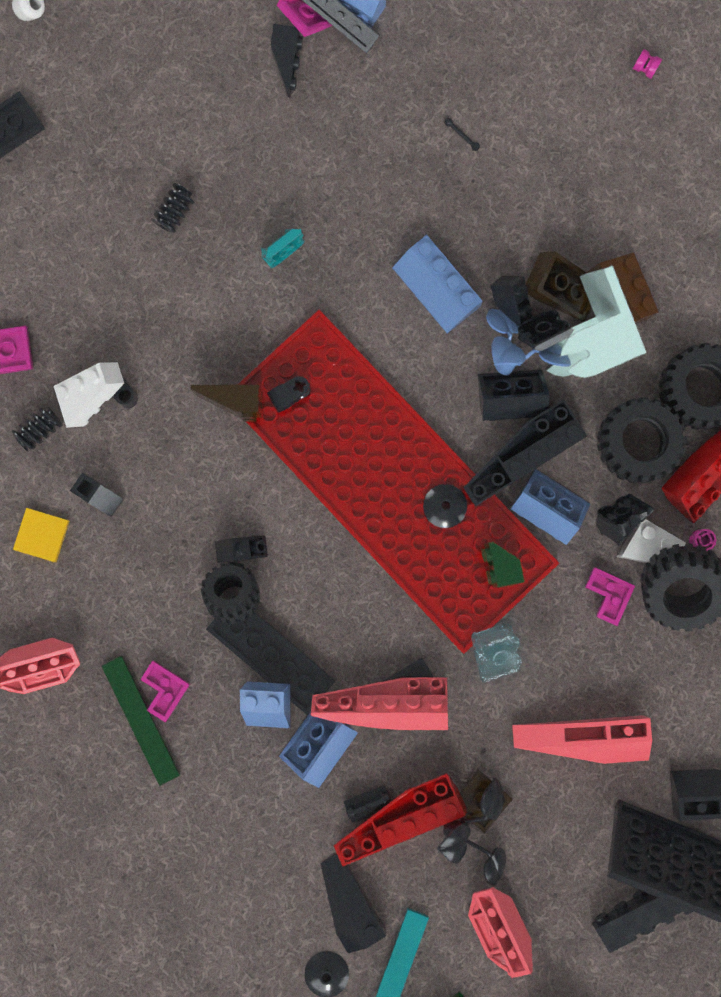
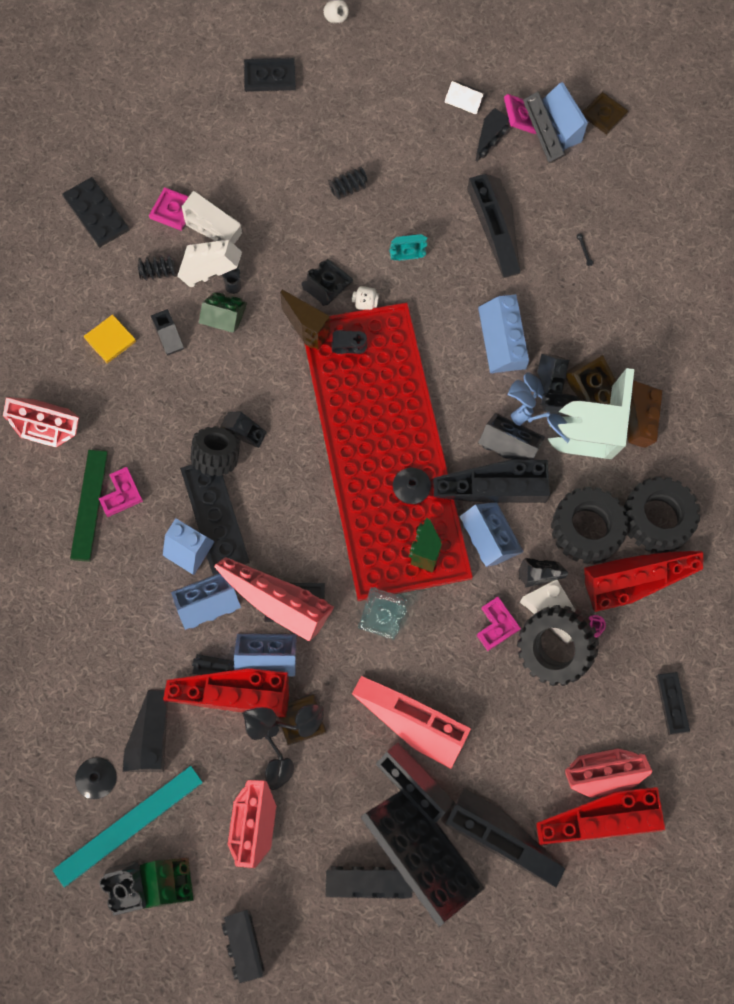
camera: 30 degrees right, 15 degrees down
(59, 342) = (210, 220): none -> white wedge
(137, 436) = (222, 312): none -> slope
(221, 335) = (326, 282): none -> black slope
(232, 26) = (465, 97): none -> brick
(274, 330) = (365, 298): none -> white head
(354, 156) = (496, 220): none -> black wedge
(409, 761) = (266, 652): none -> medium blue slope
(627, 797) = (415, 783): none -> black brick

